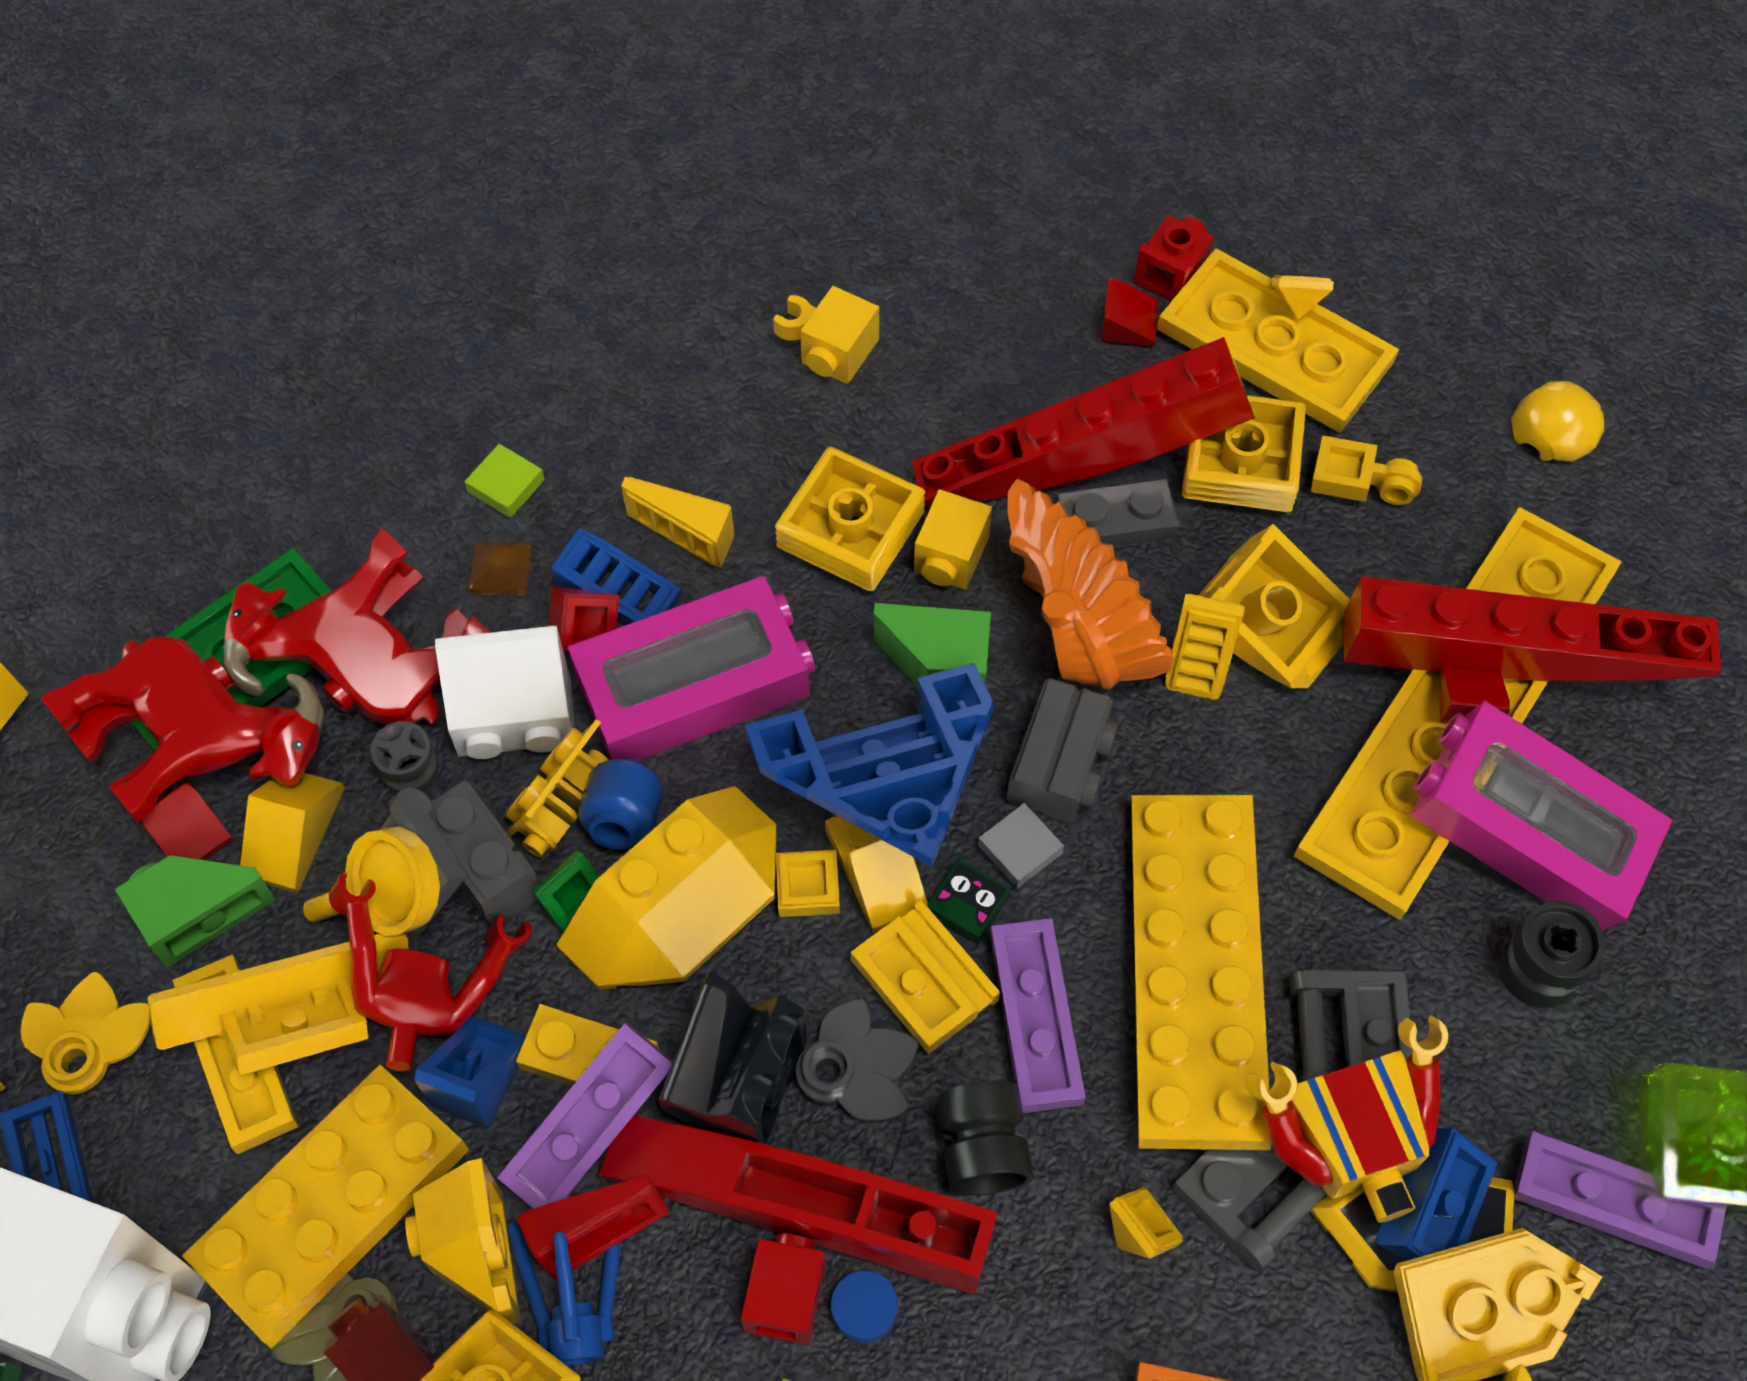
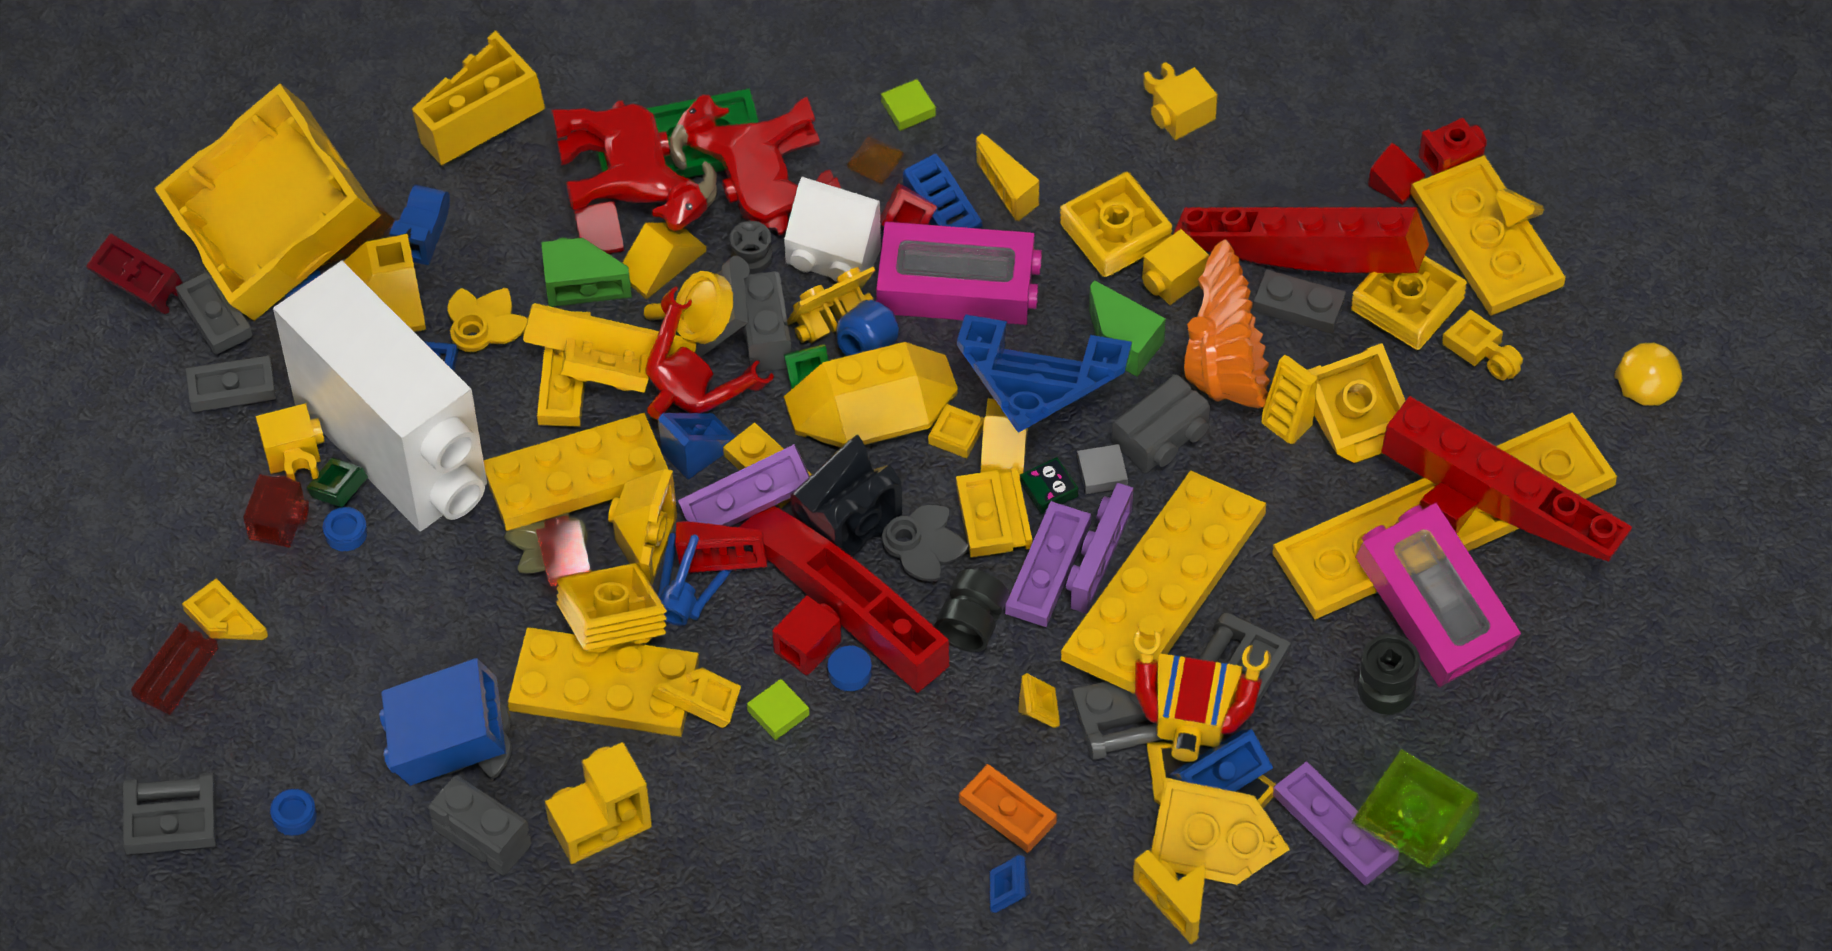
camera: 30 degrees right, 5 degrees down
(1089, 960) = (1099, 547): none -> medium lavender plate

